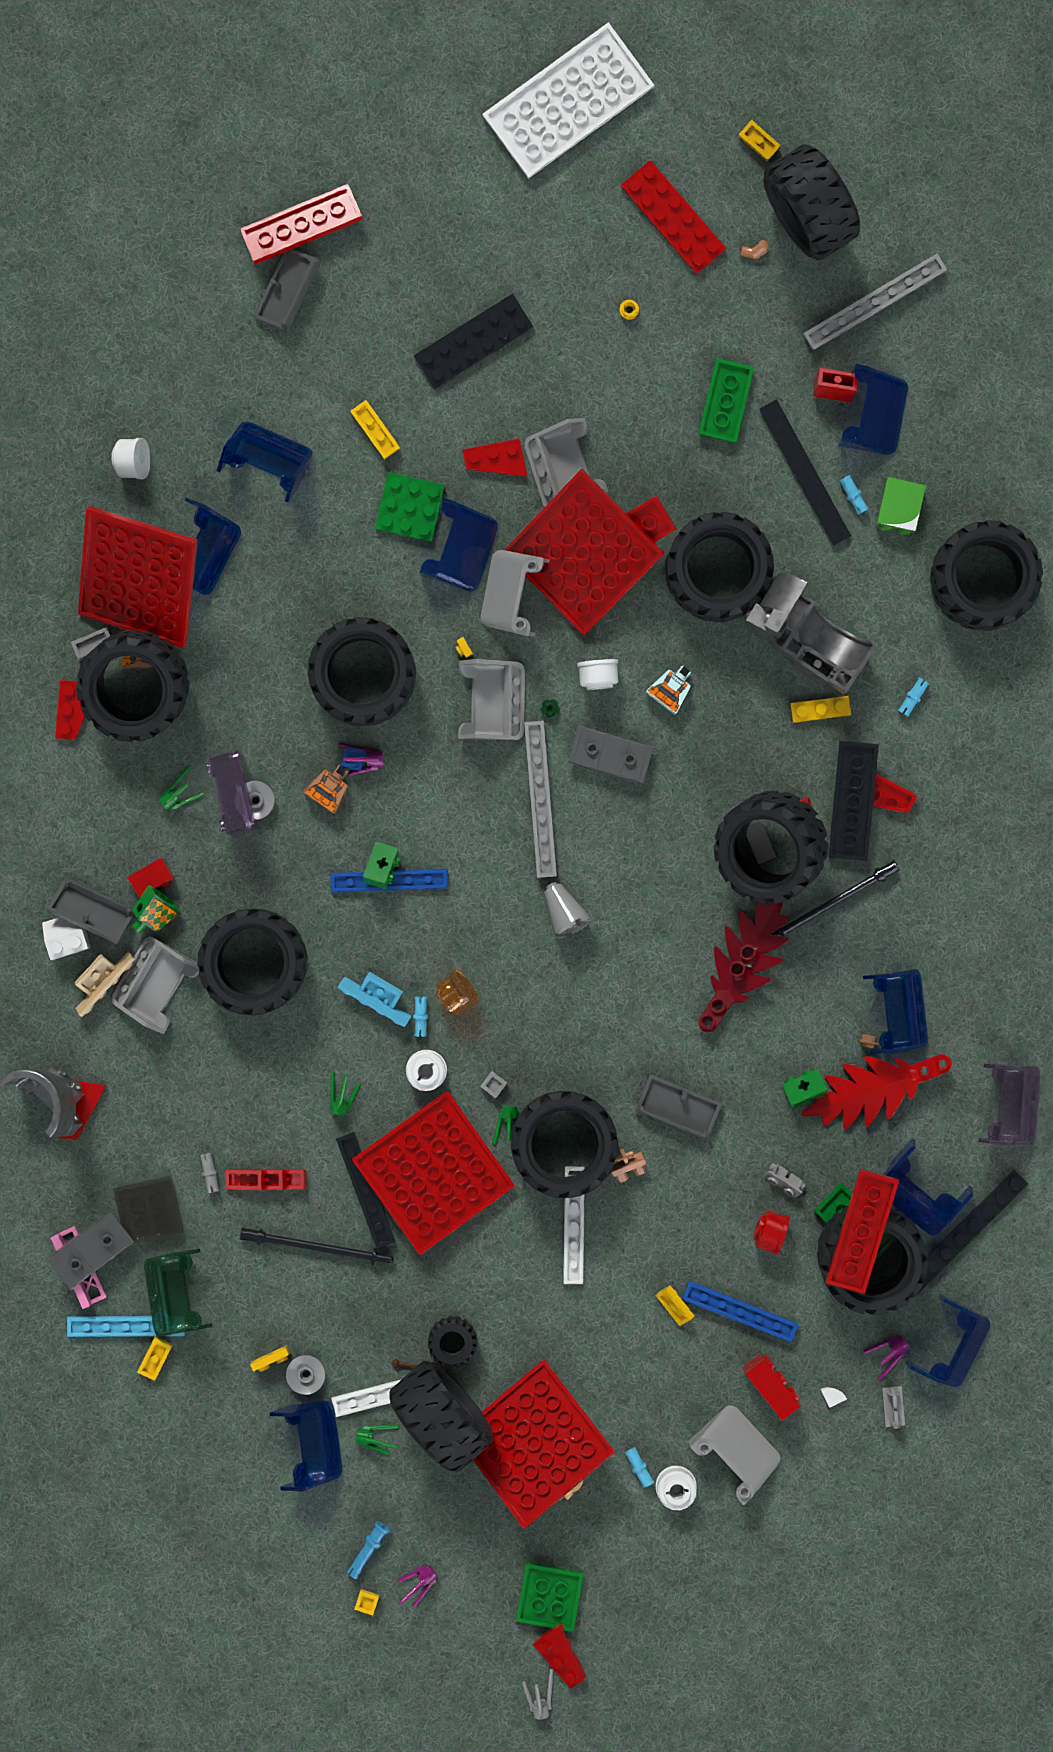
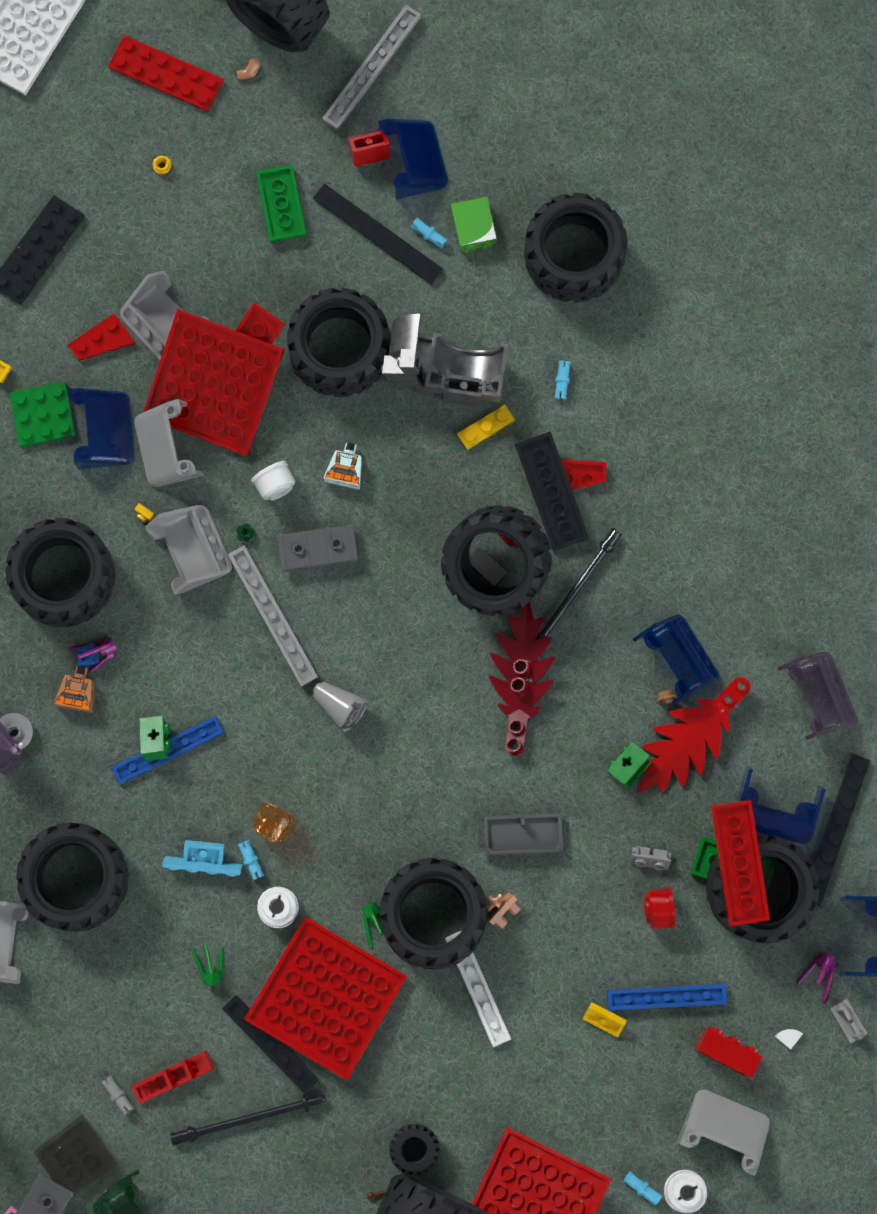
camera: 25 degrees left, 10 degrees down
(493, 1084) = (345, 891): light grey plate -> none

